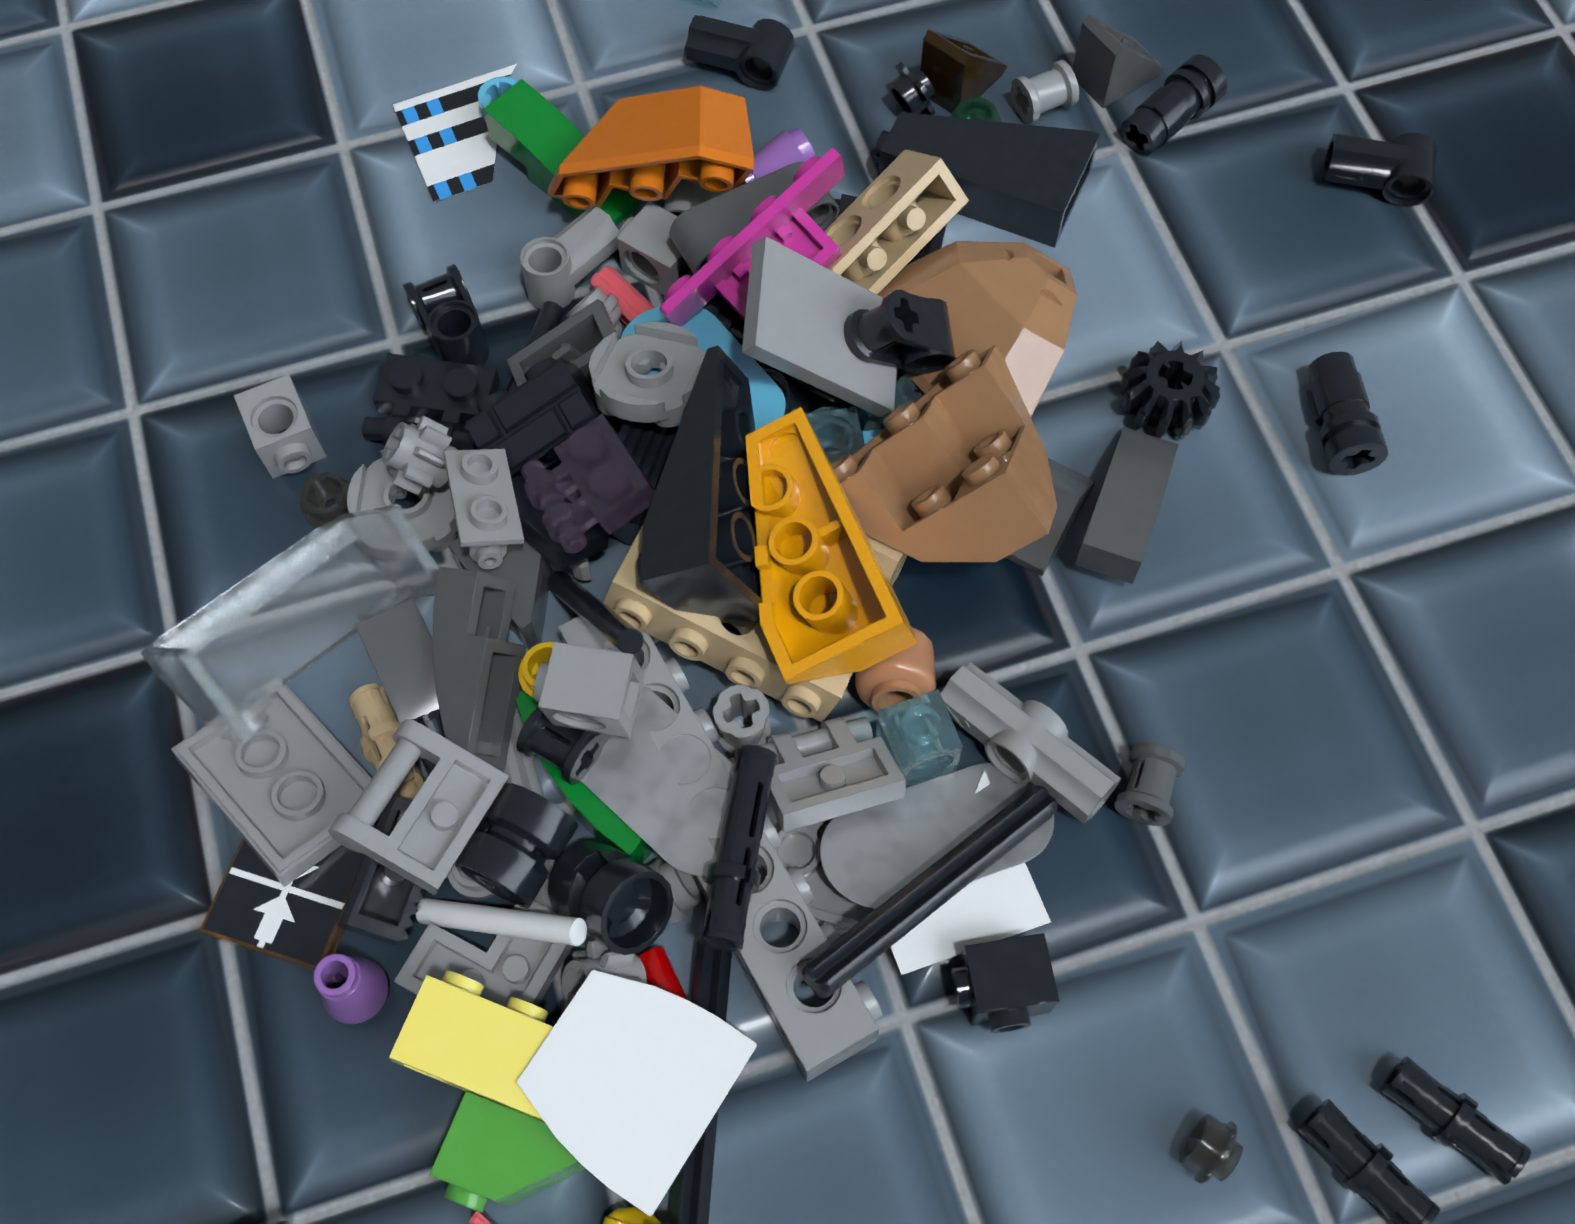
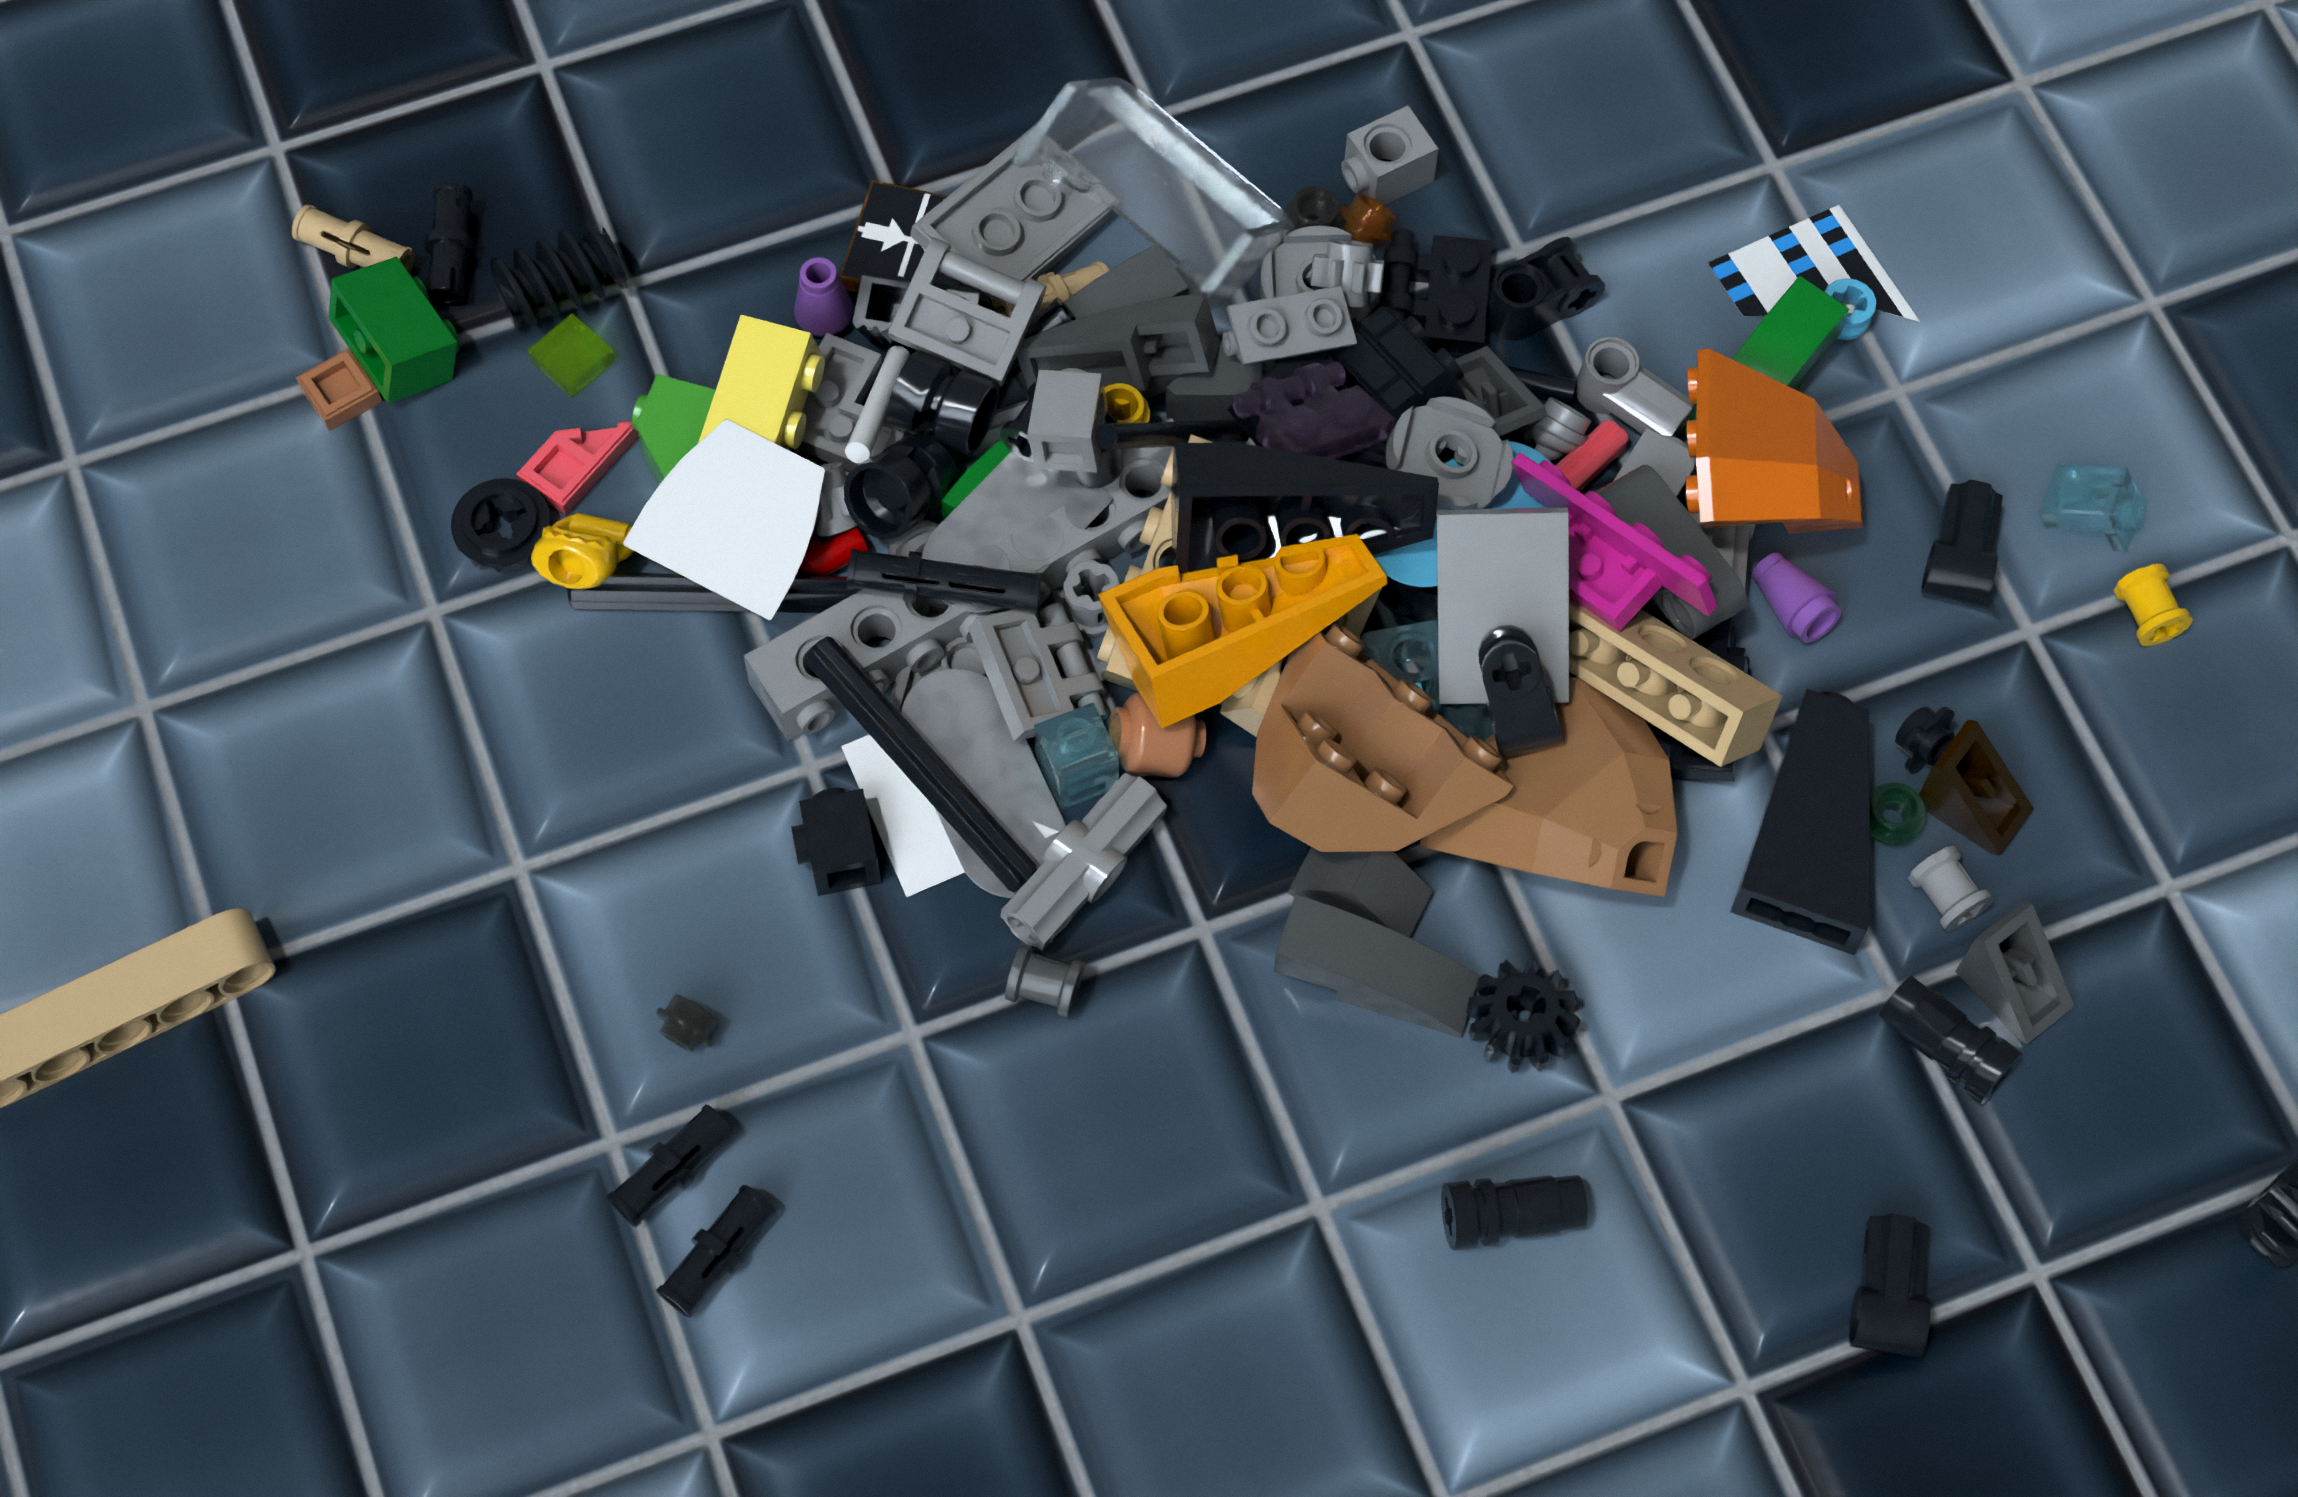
camera: 85 degrees right, 0 degrees up
(345, 452) = (1368, 219): none -> clear orange plate

